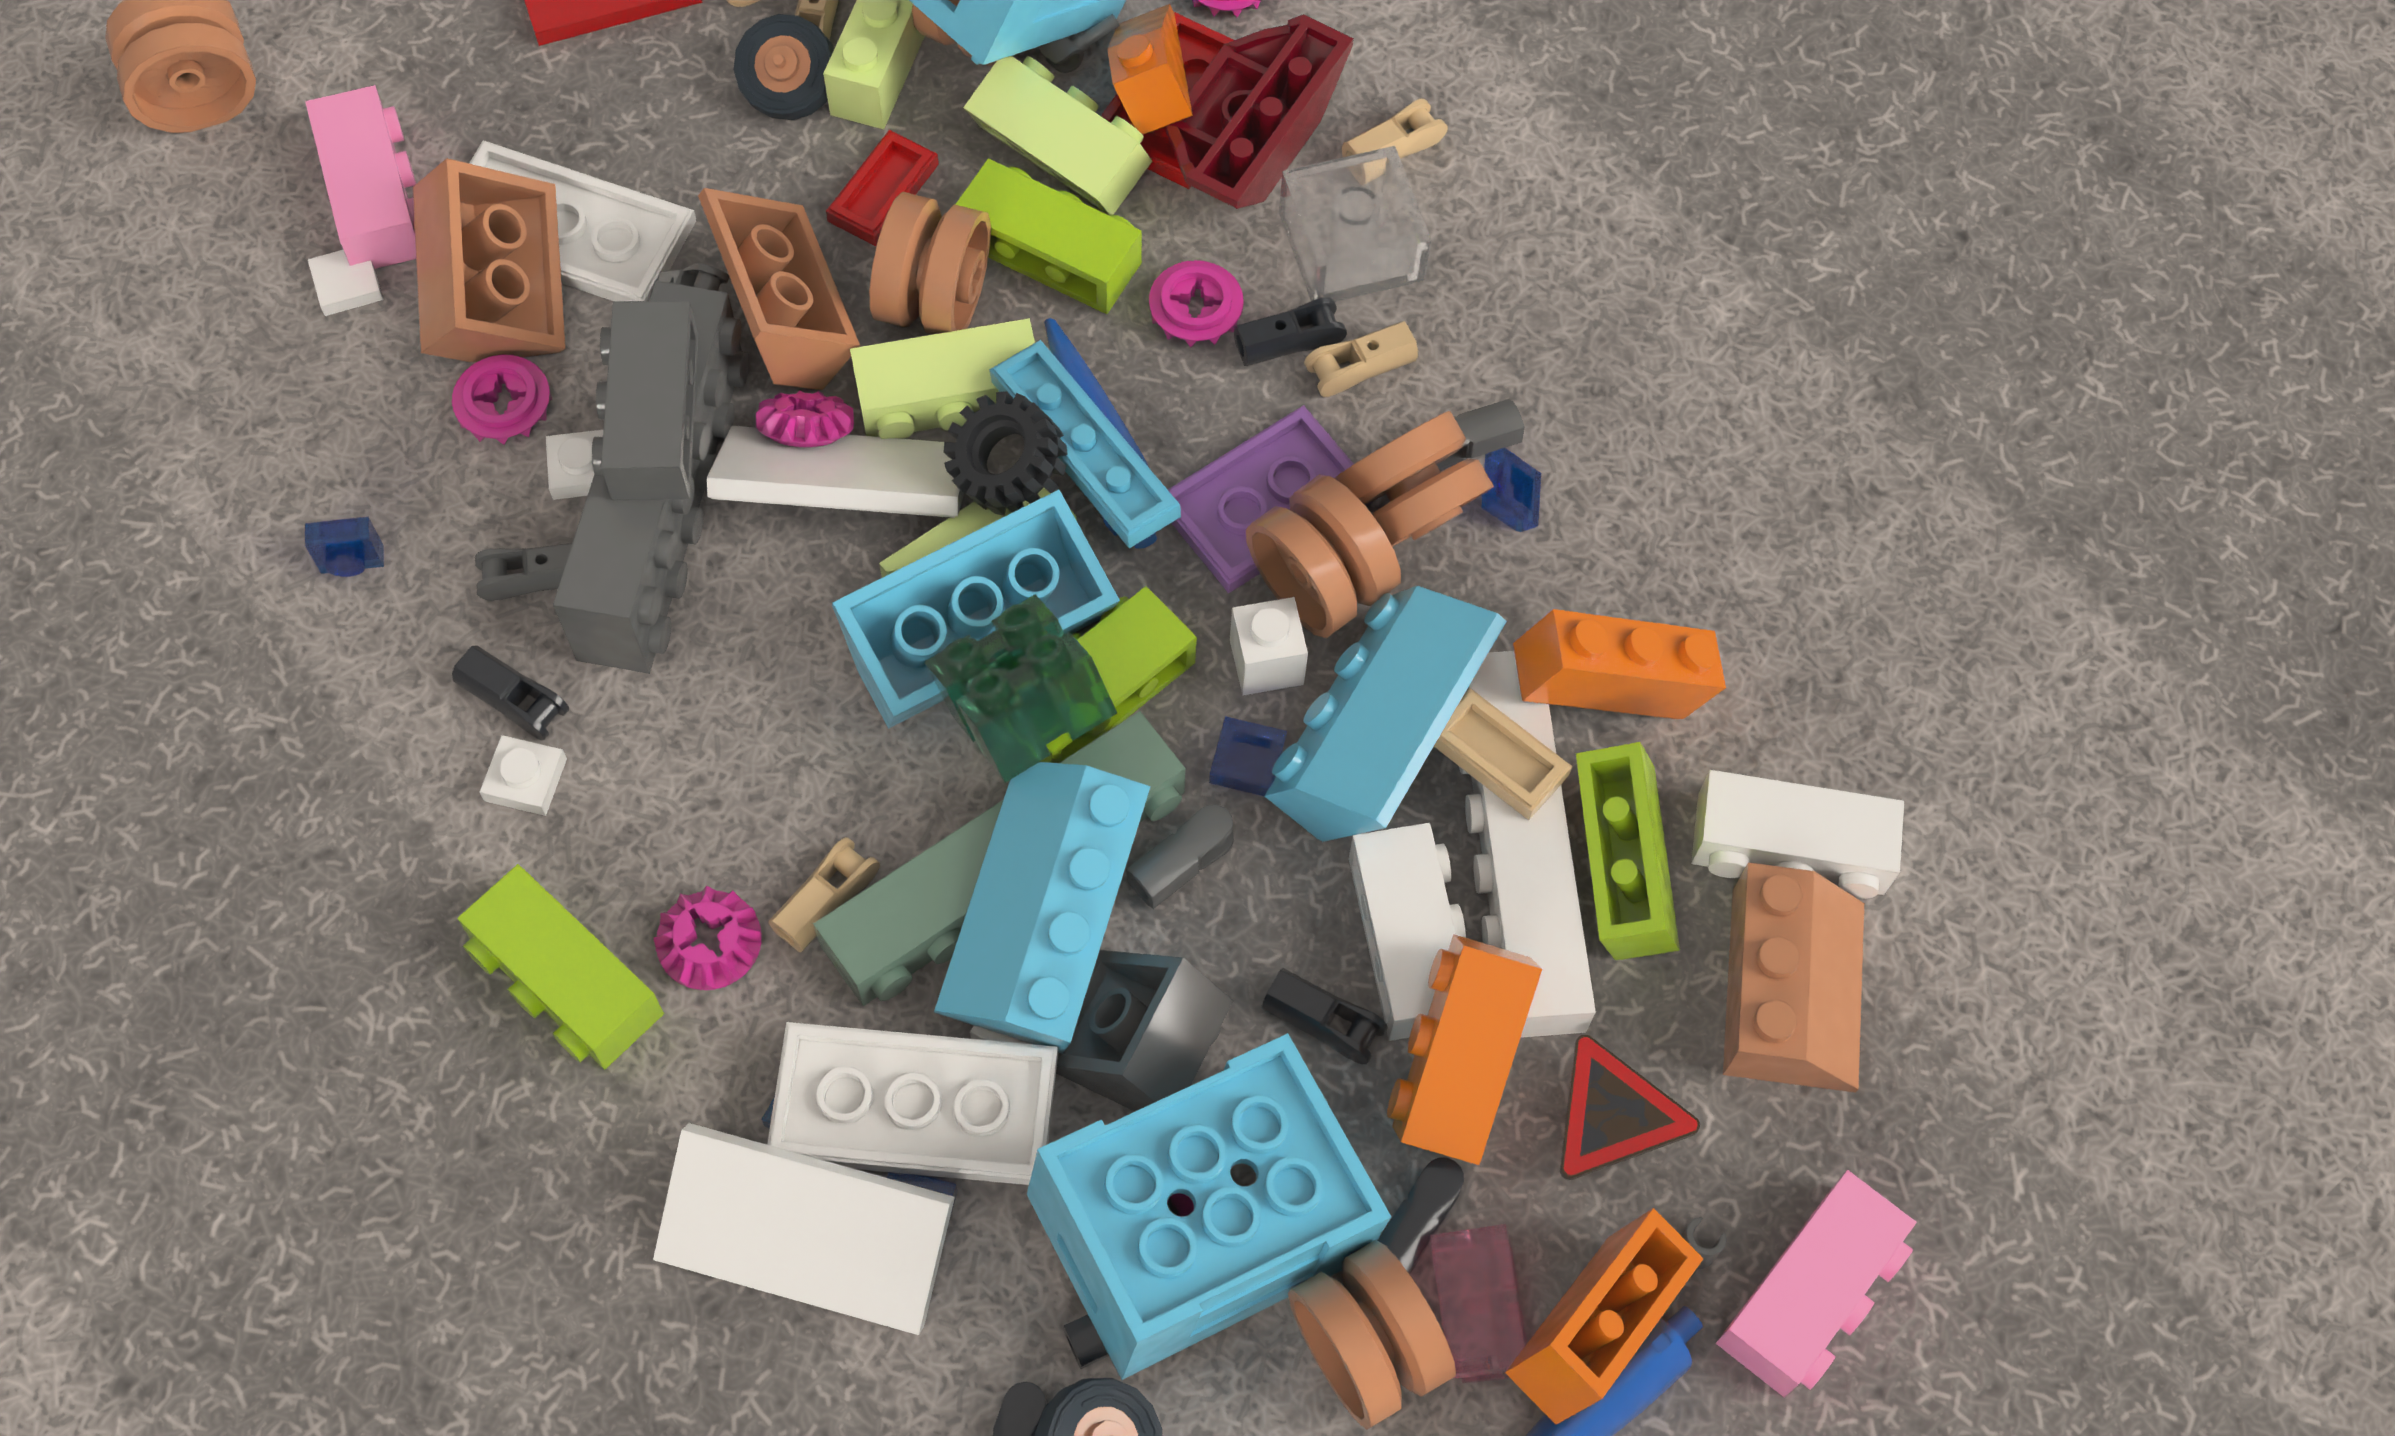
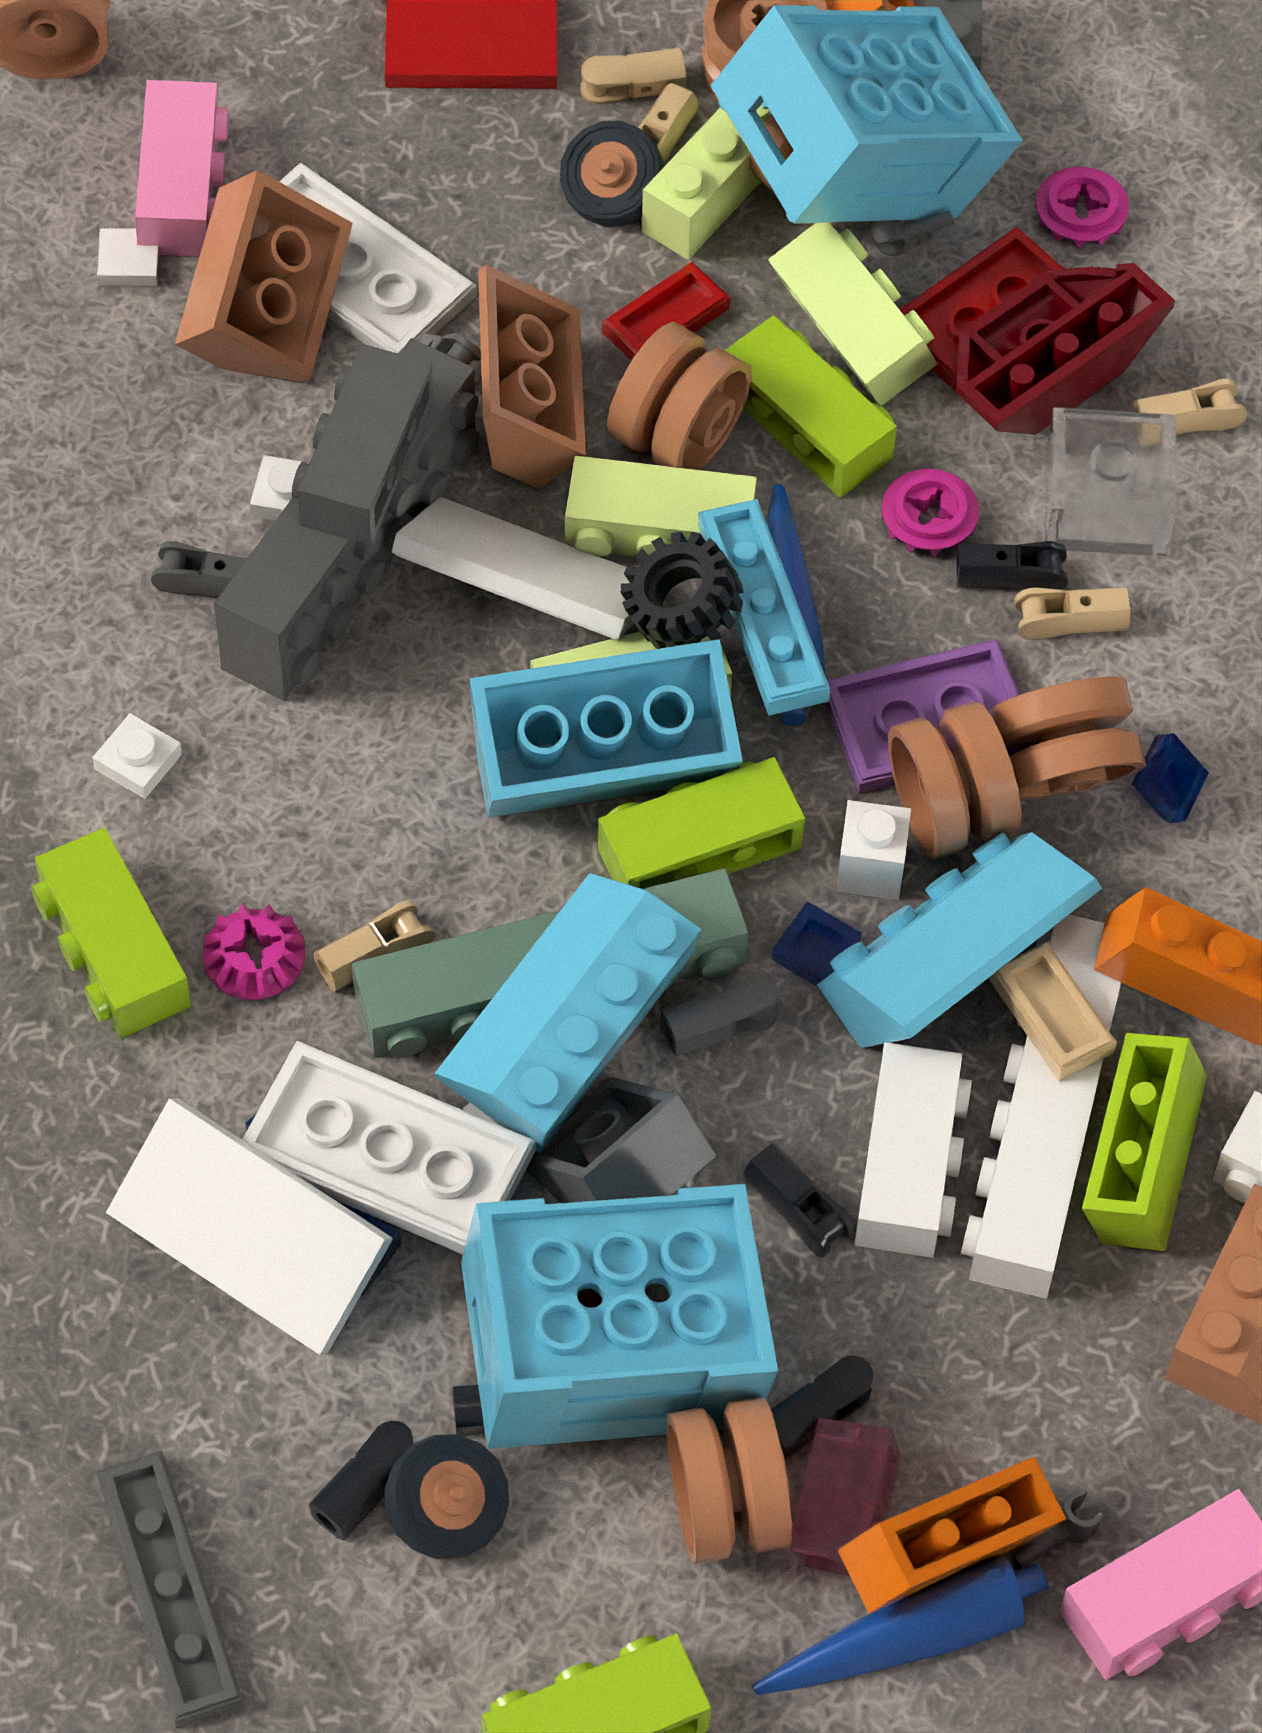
camera: 20 degrees right, 5 degrees down
(344, 546) = (45, 500): clear blue plate -> none
(480, 388) = (219, 392): dark pink gear -> none
(506, 689) = (147, 674): black bar -> none
(804, 419) = (510, 509): dark pink gear -> none
(1021, 687) = (616, 806): clear green brick -> none
(1150, 70) = (962, 274): orange slope -> none
(1463, 1048) = (910, 1260): orange brick -> none
(1487, 431) = (1167, 713): dark grey bar -> none
(1615, 1113) = (1040, 1373): piece -> none

